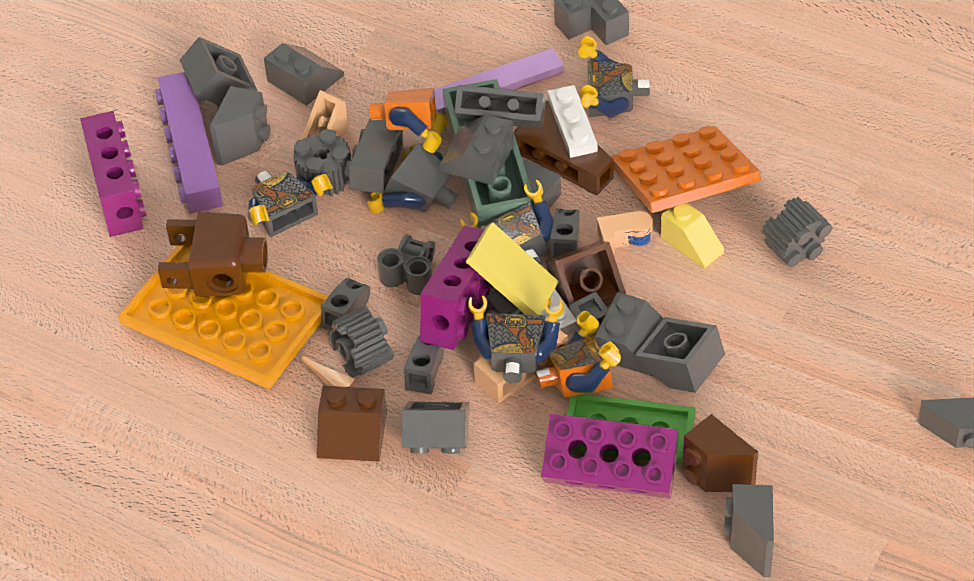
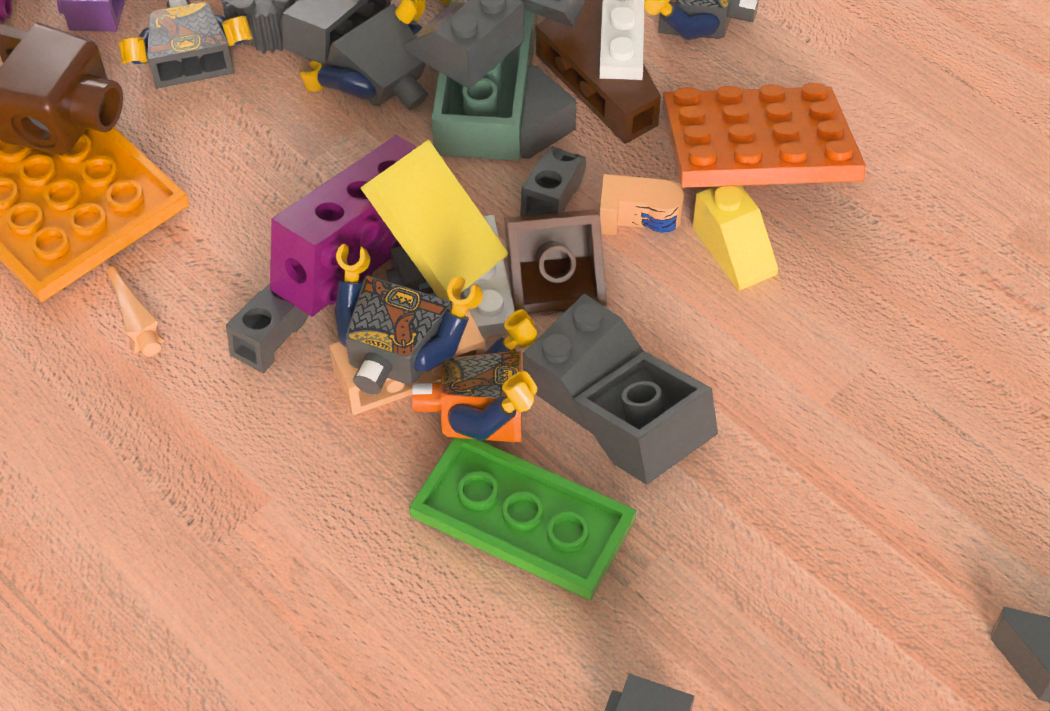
camera: 15 degrees right, 5 degrees up
(344, 300) = (198, 207): dark grey leg -> none
(351, 423) = (120, 386): reddish brown slope -> none
(360, 341) = (185, 267): dark grey brick -> none
(407, 264) = (301, 170): dark grey piece -> none
(435, 426) = (237, 424): slope -> none
(527, 225) = (491, 163): torso -> none
(592, 304) = (541, 304): dark grey plate -> none
(600, 436) = (435, 570): magenta brick -> none
(717, 457) = (634, 609): reddish brown slope -> none
(796, 232) = (893, 273): dark grey brick -> none

